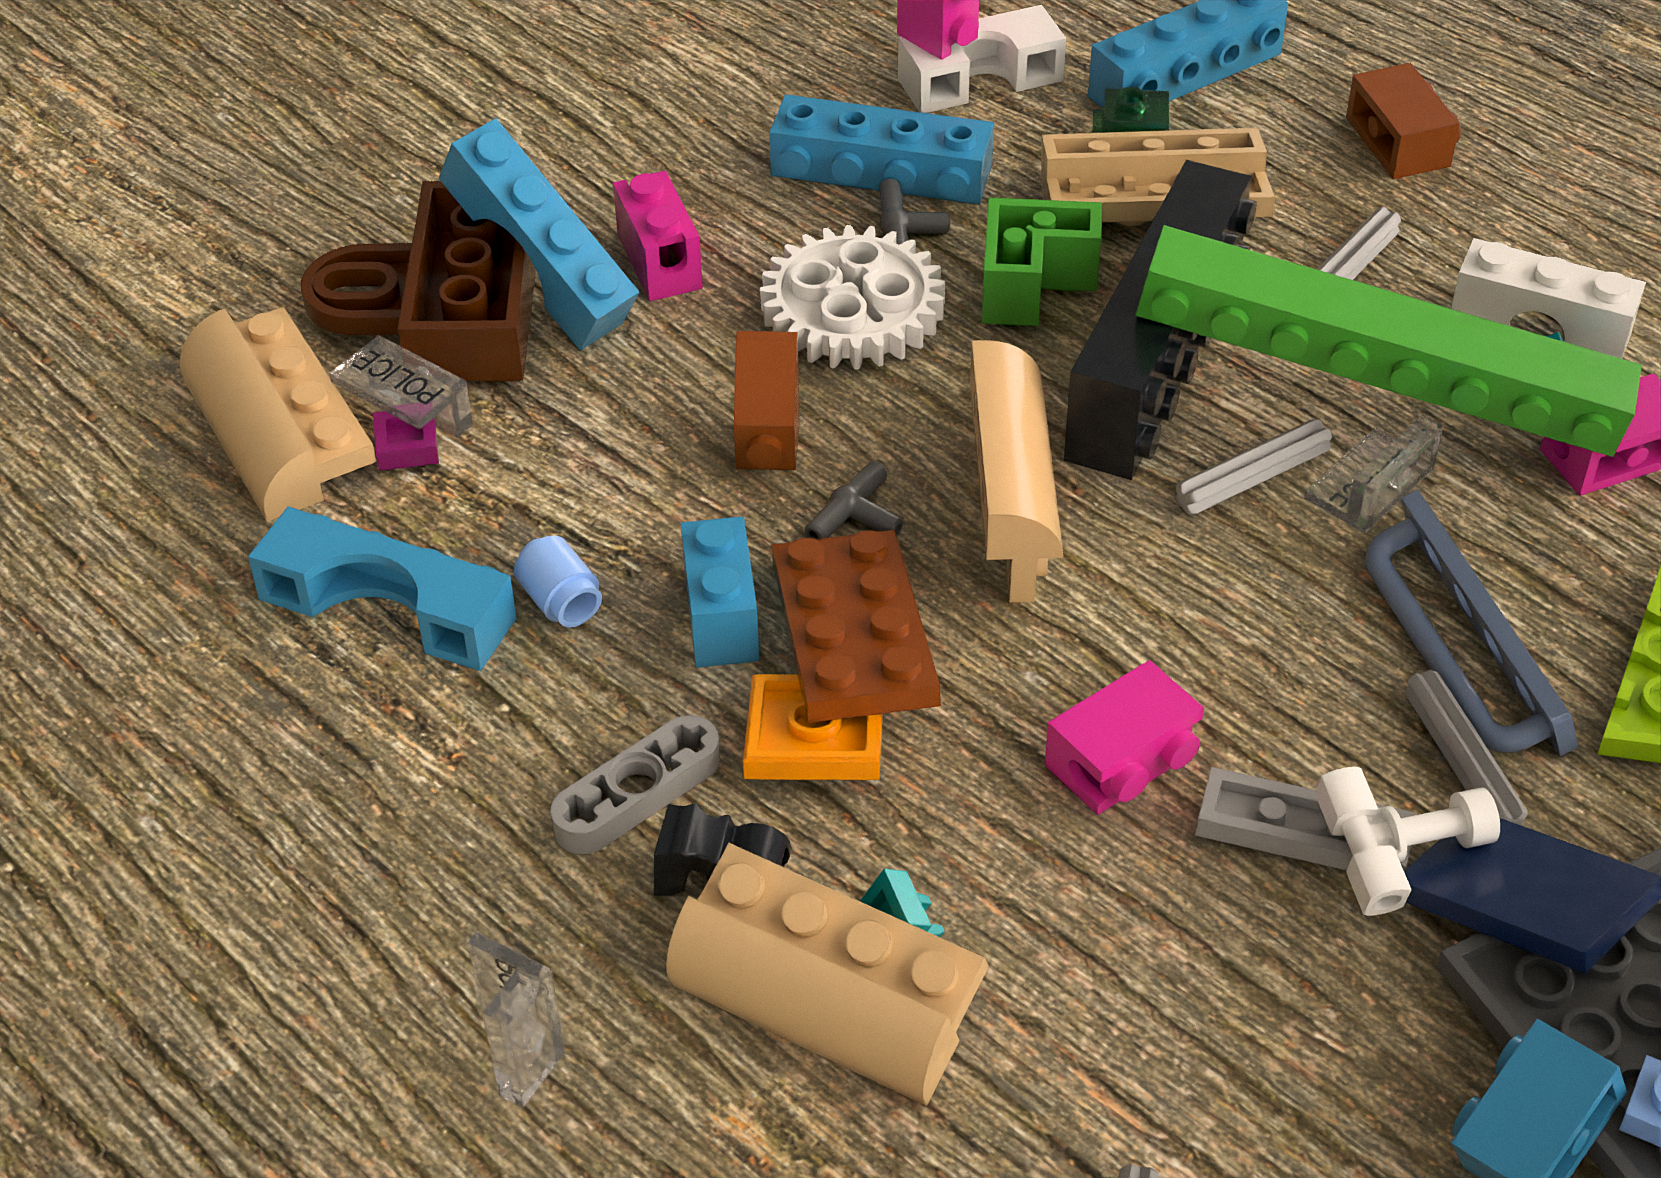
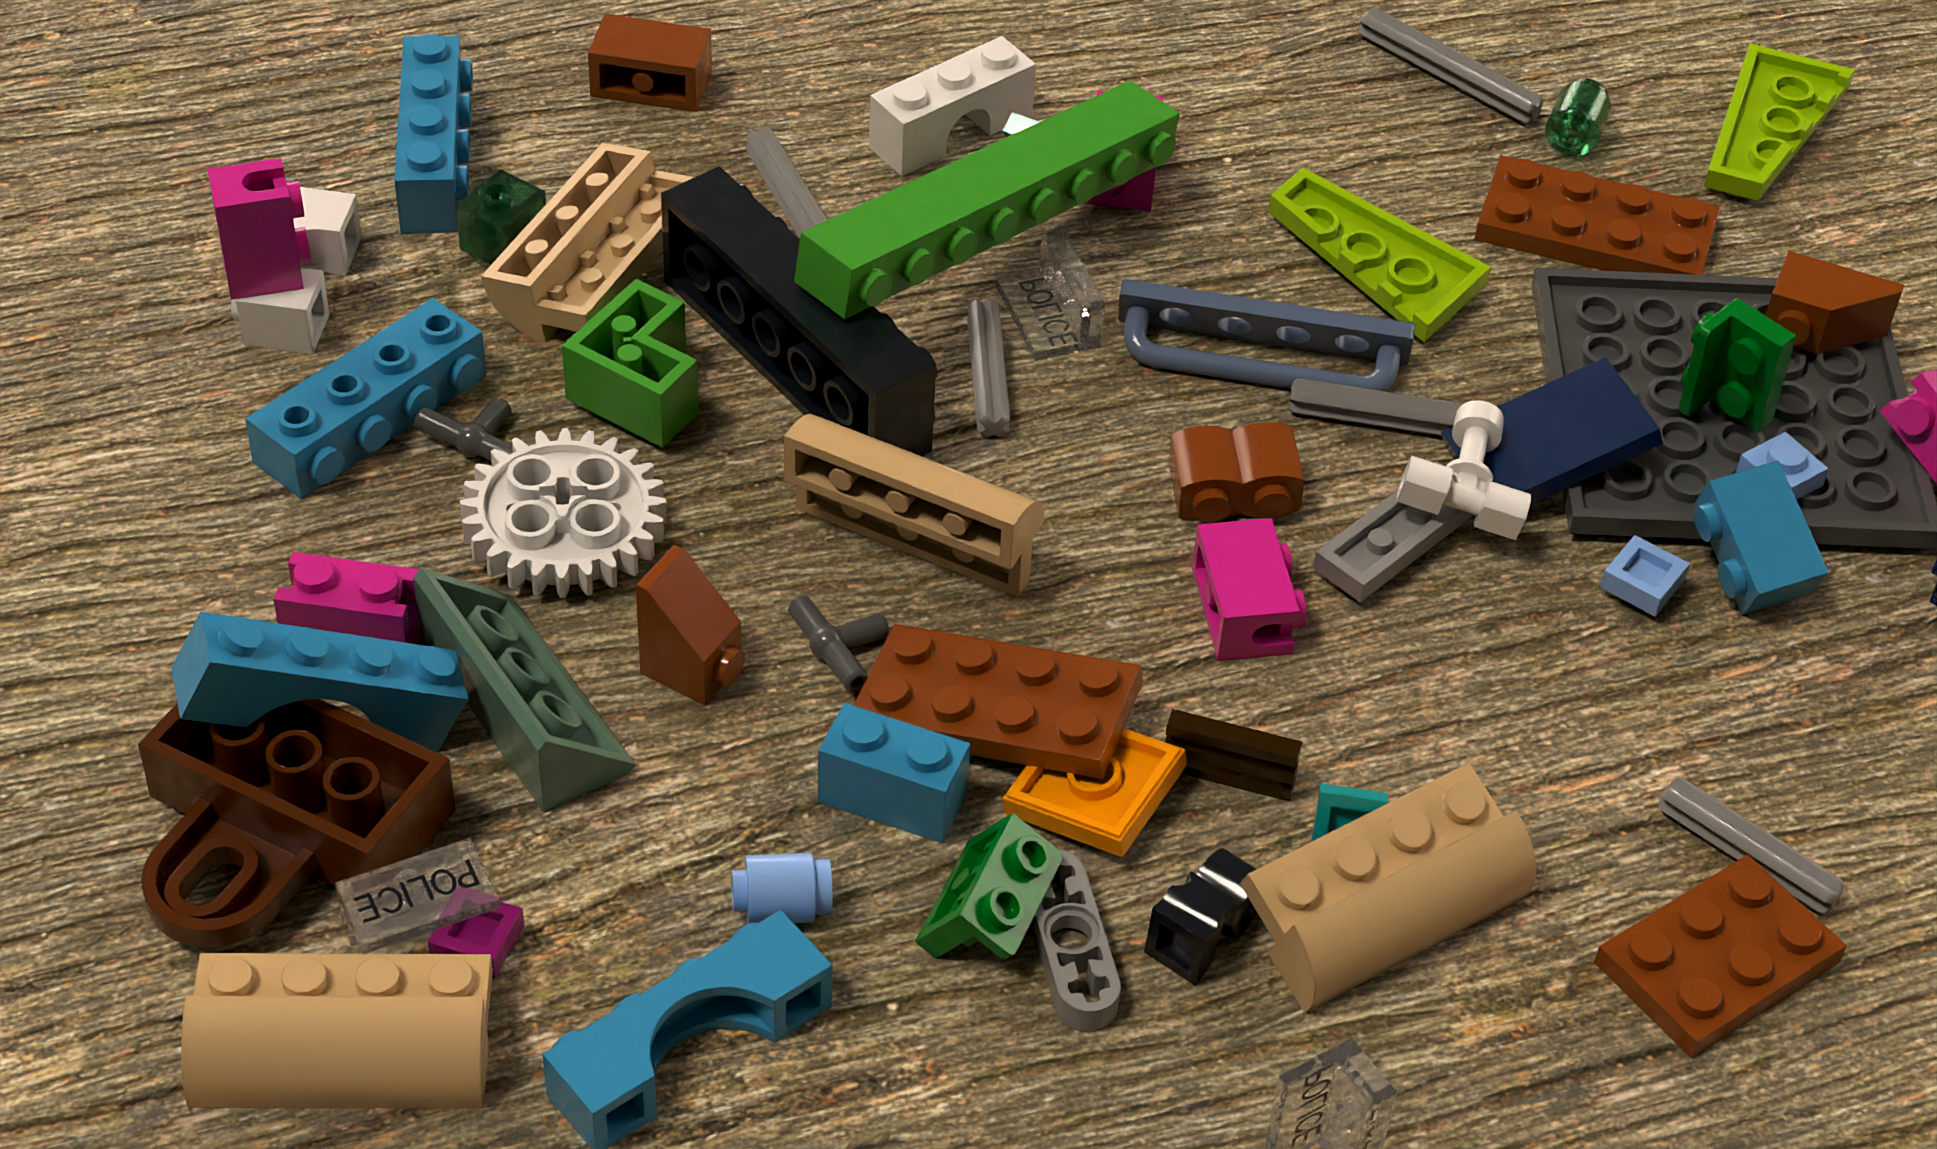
camera: 65 degrees left, 0 degrees up
(634, 705) = (992, 890): none -> green bracket
(651, 349) = (520, 690): none -> sand green slope
(913, 805) = (1235, 754): none -> dark brown tile
(1268, 674) = (1235, 472): none -> dark orange brick
(1422, 1047) = (1644, 575): none -> light blue plate

